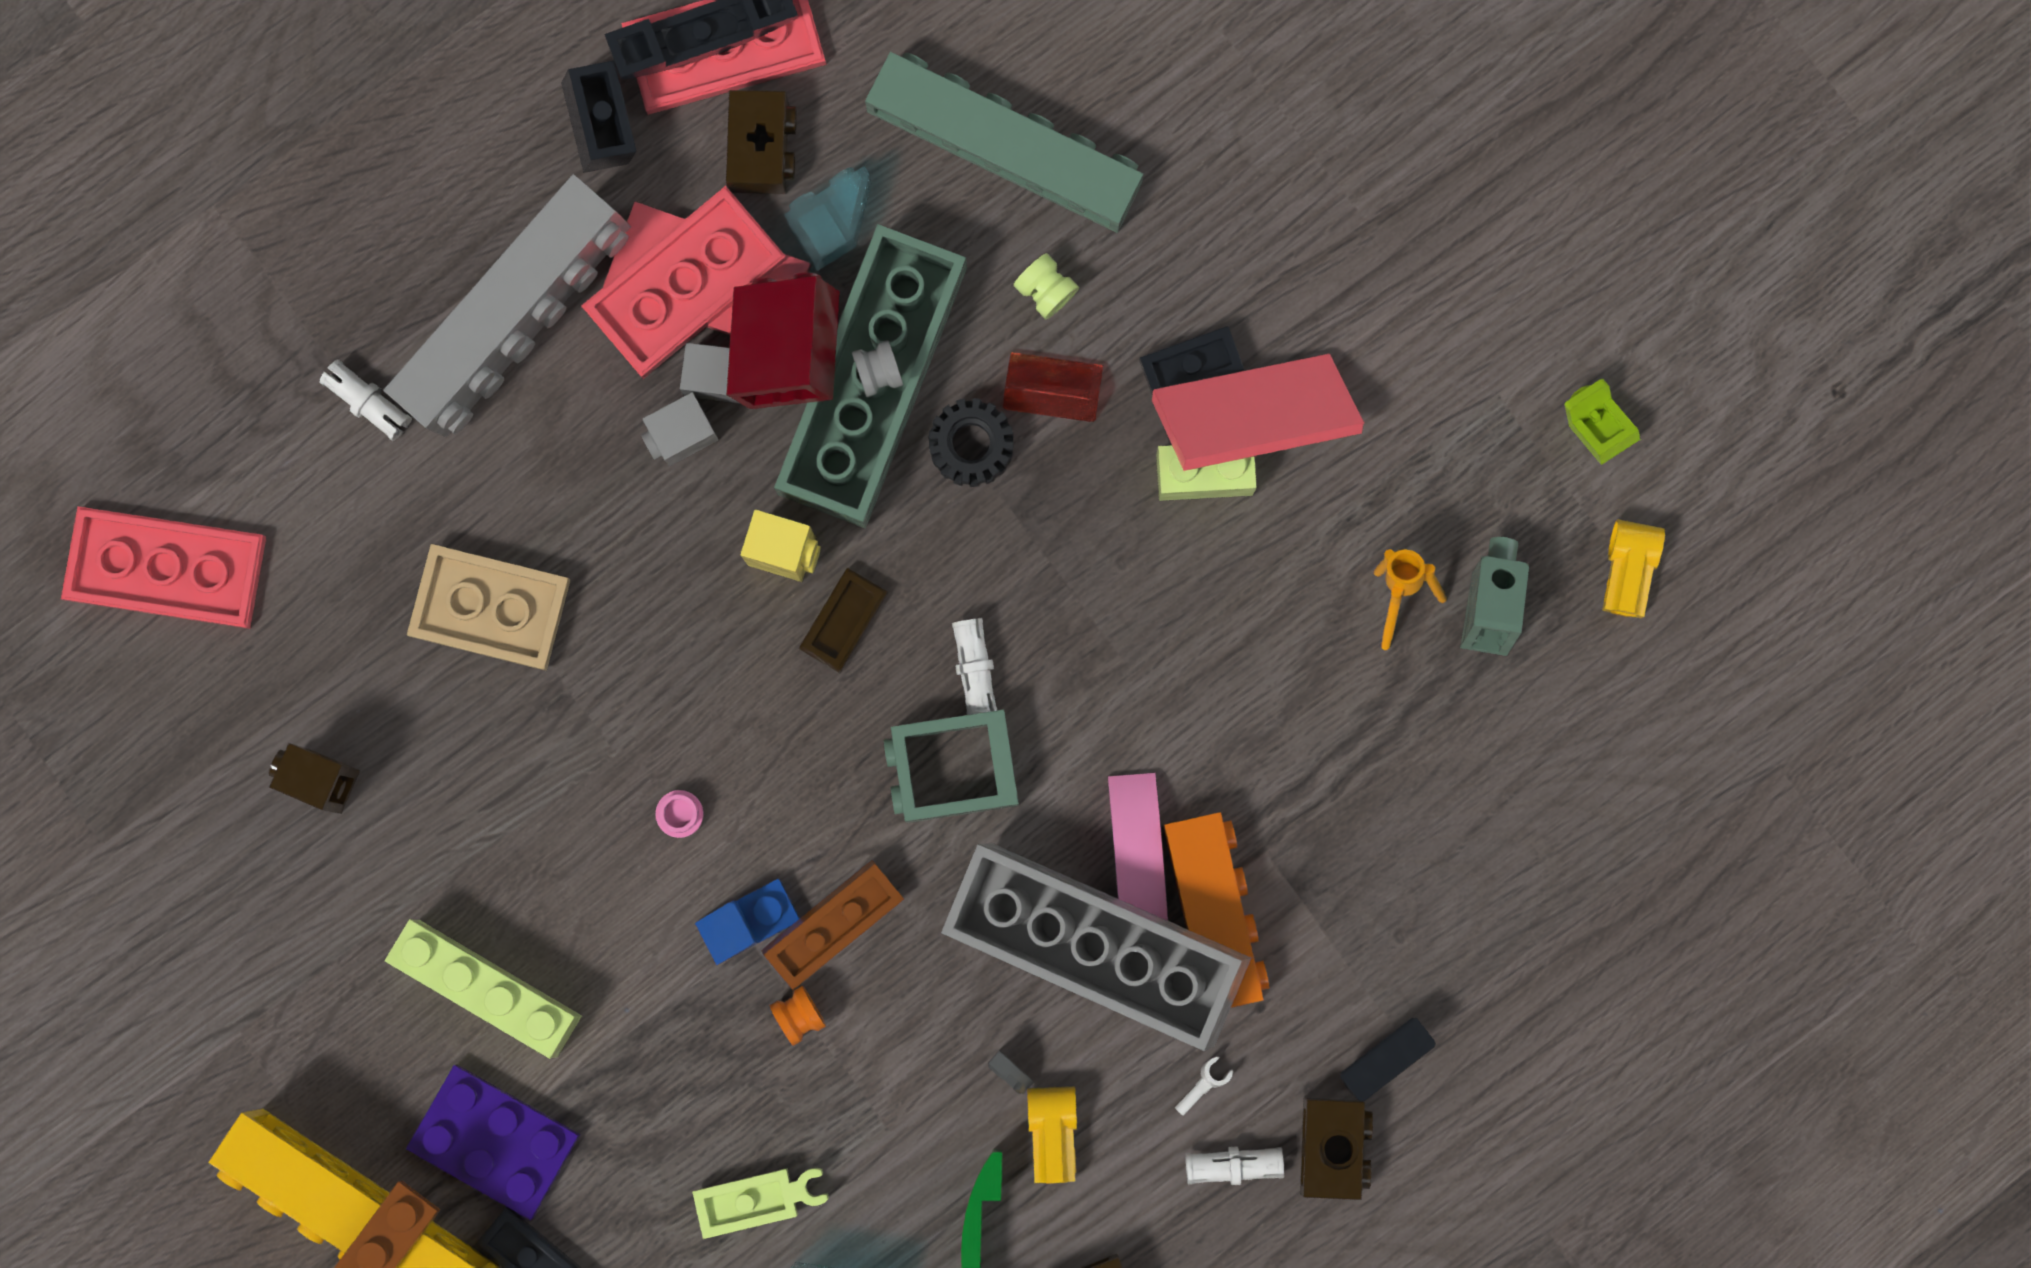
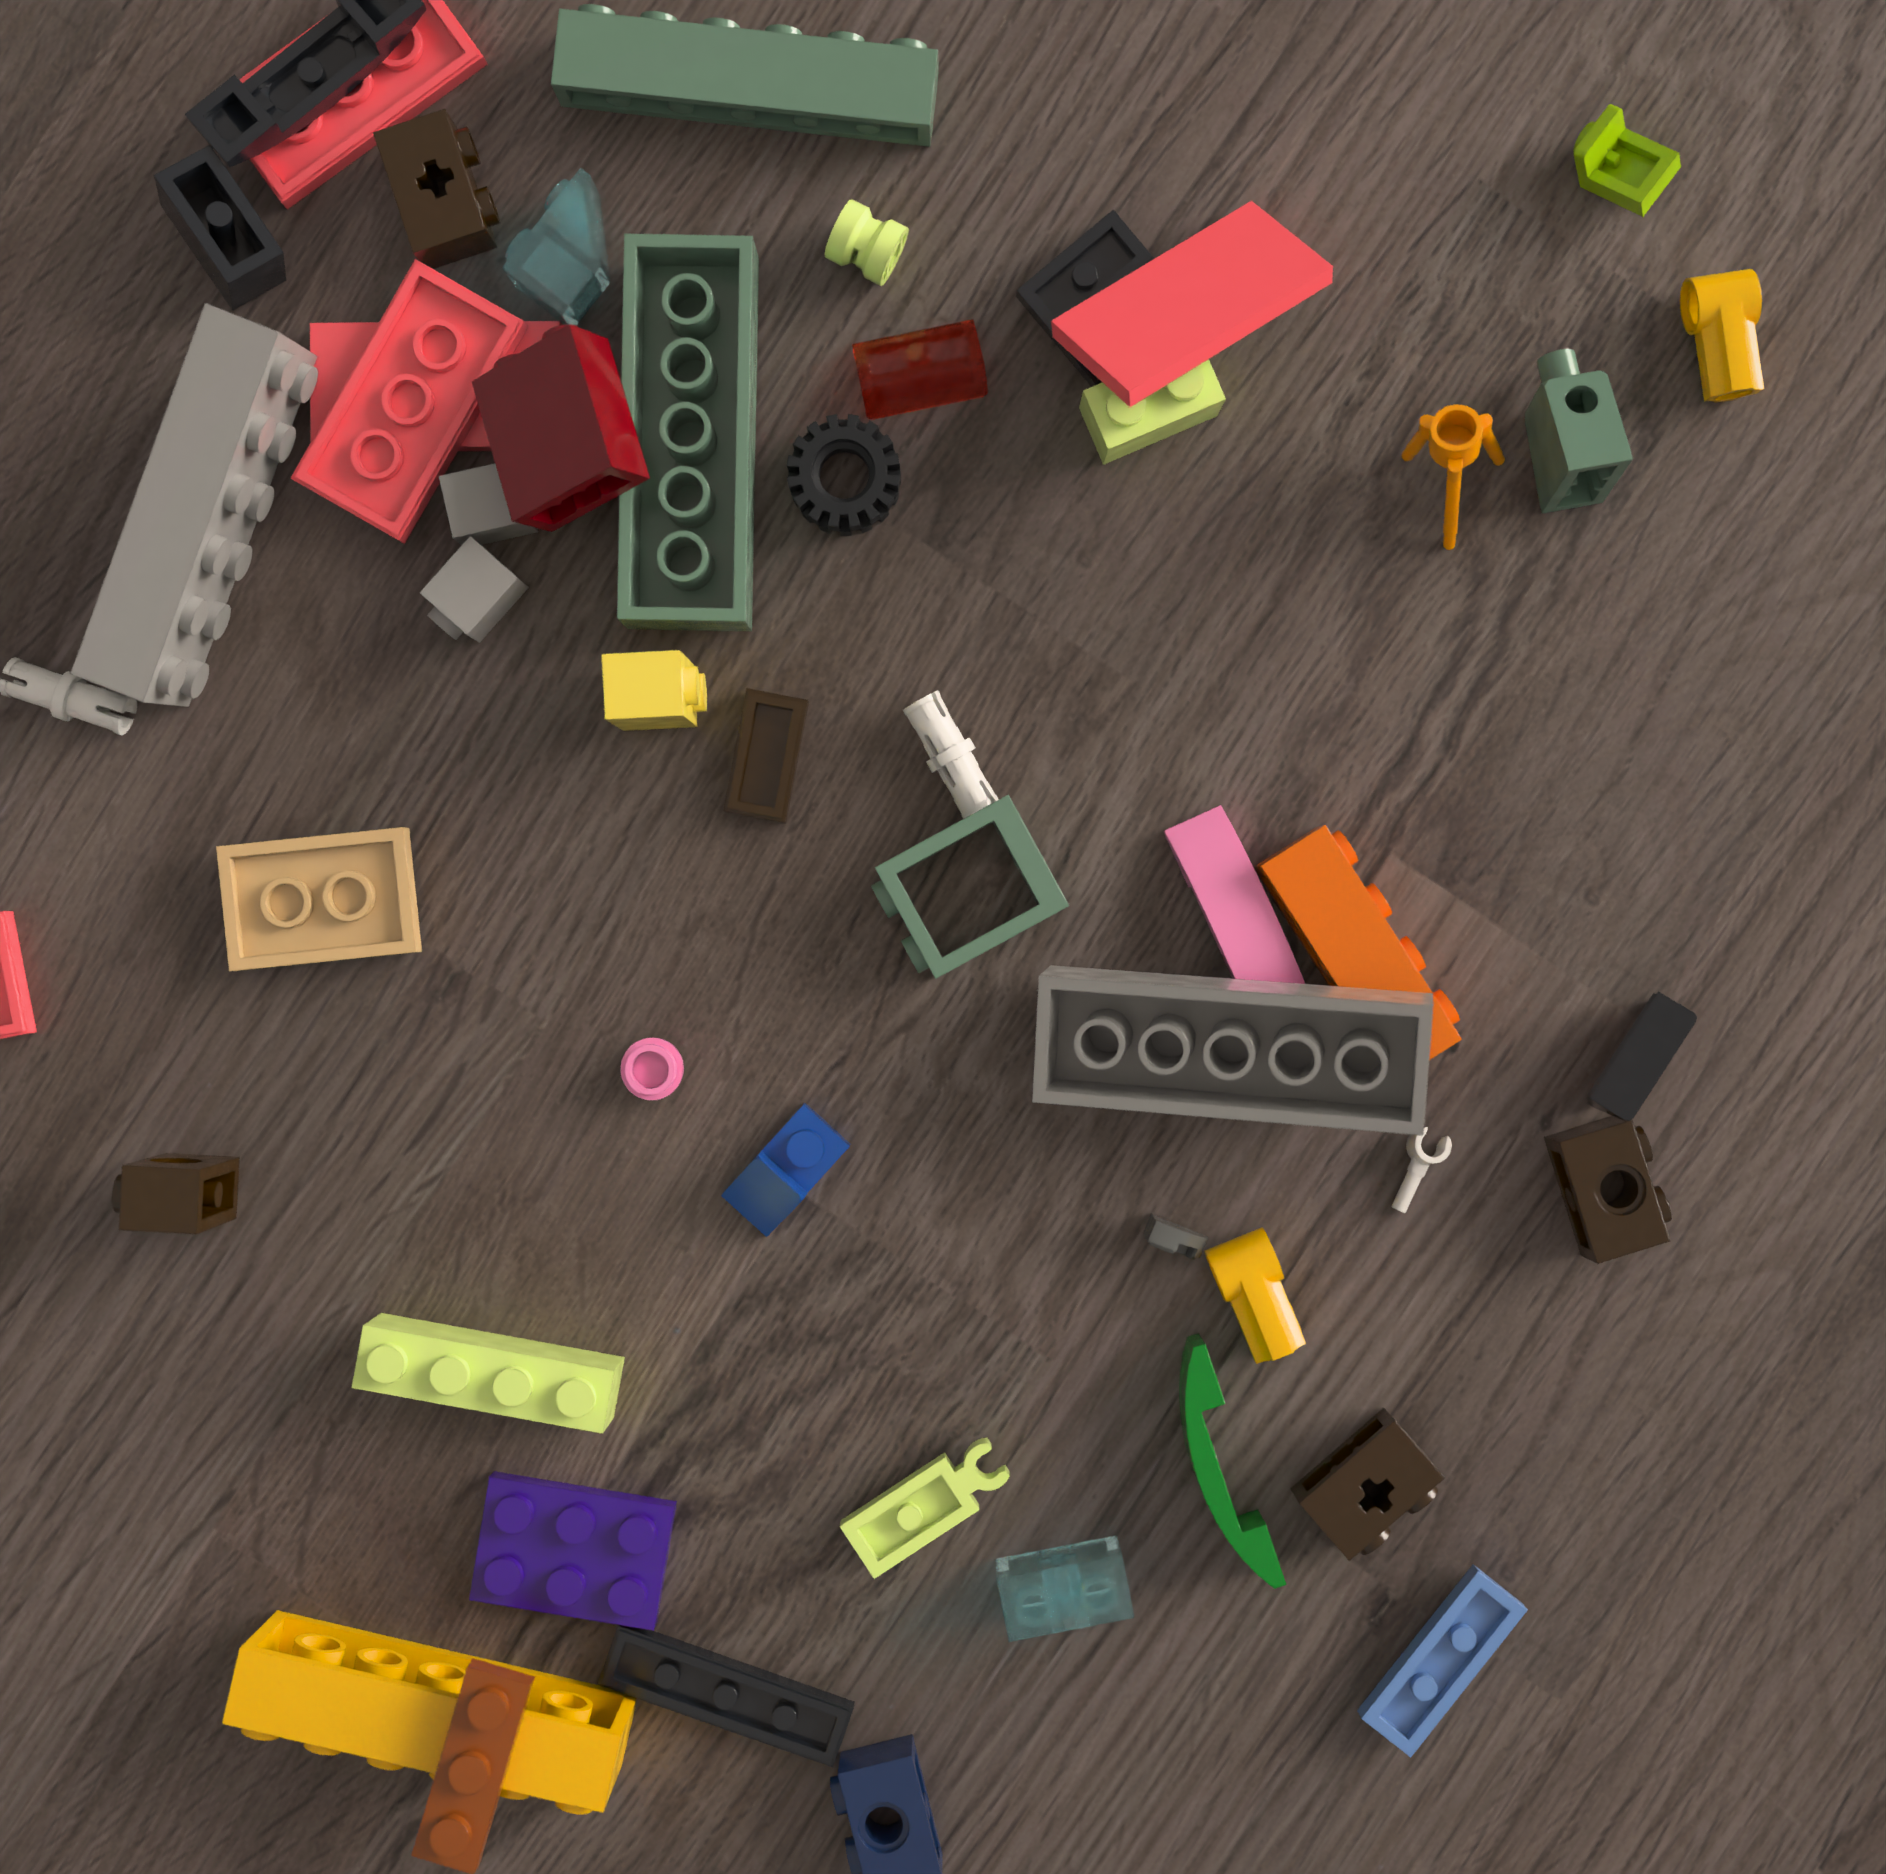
camera: 20 degrees left, 5 degrees up
(797, 1015) = (889, 1264): orange wheel -> none
(832, 924) = (891, 1137): dark orange plate -> none
(877, 368) = (692, 417): light grey wheel -> none
(1234, 1165) = (1492, 1251): white pin -> none

